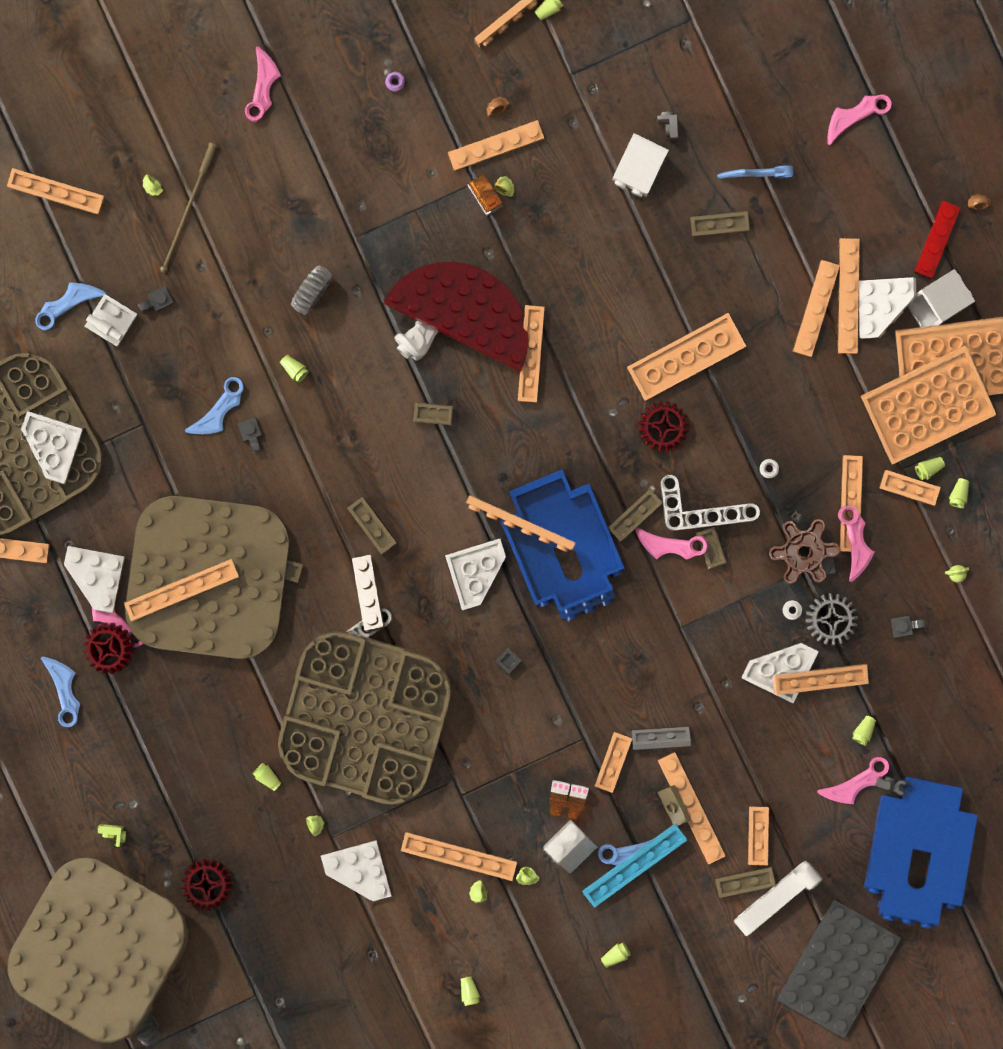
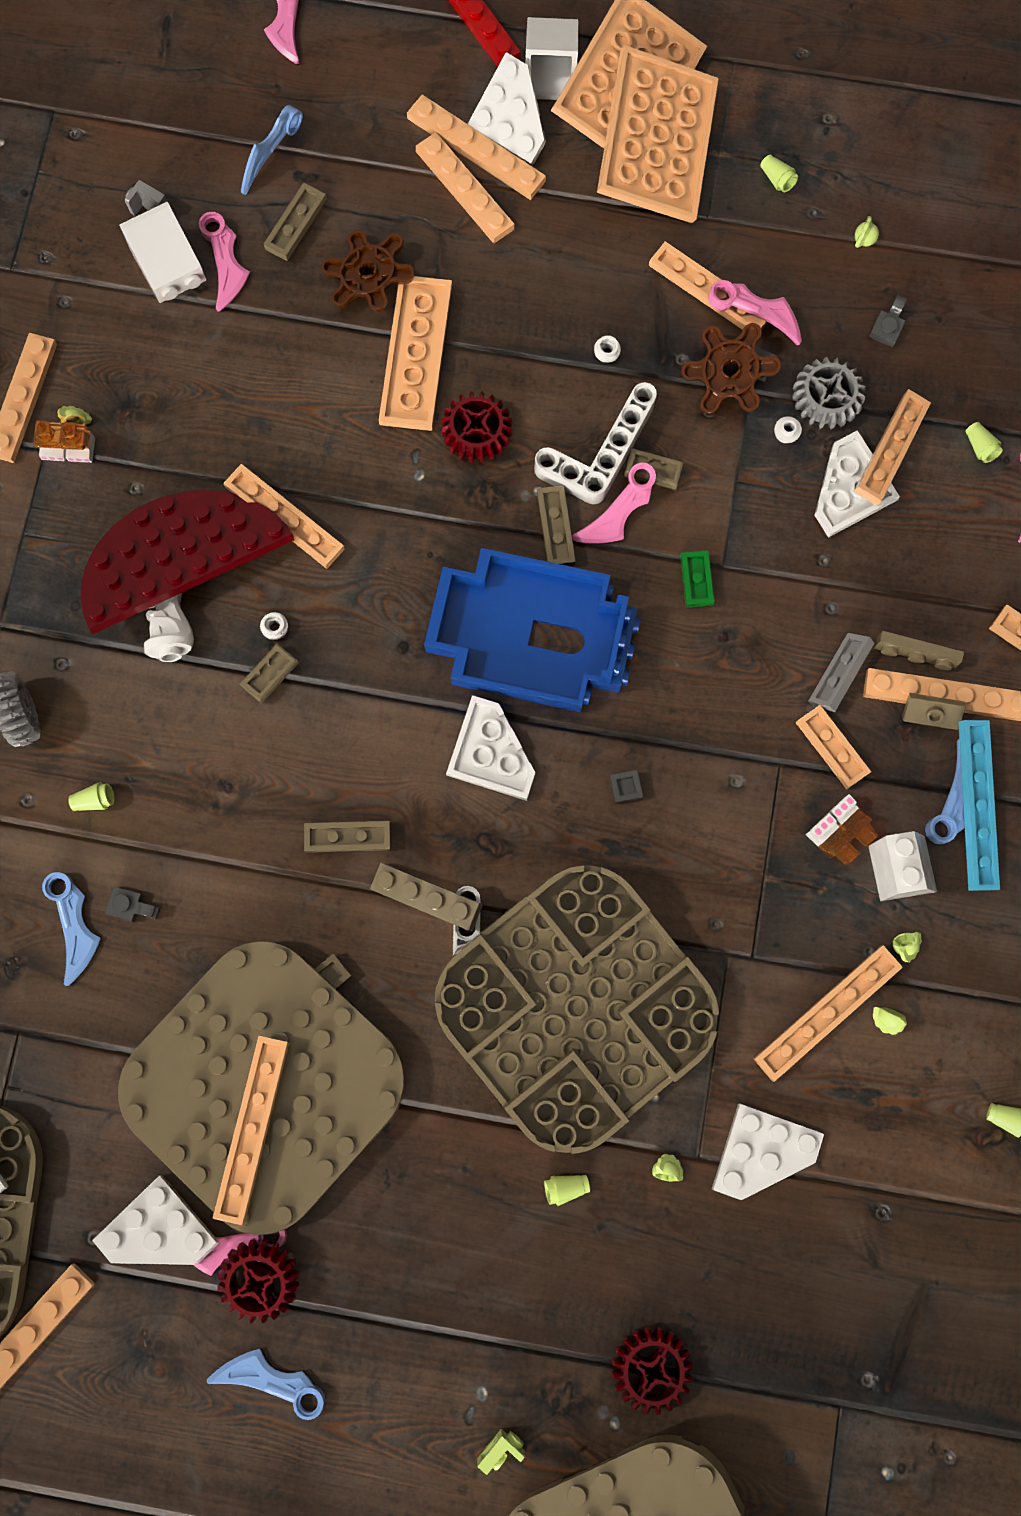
camera: 60 degrees left, 10 degrees down
(458, 391) = (272, 618): none -> white plate
(527, 527) = (480, 648): light nougat plate -> none
(660, 208) = (230, 273): none -> bright pink piece
(660, 618) = (697, 579): none -> green plate
(703, 774) = (918, 650): none -> dark tan plate
(722, 280) = (363, 257): none -> reddish brown plate
(909, 487) = (735, 218): light nougat plate -> none
(928, 468) = (727, 186): yellowish green cone -> none

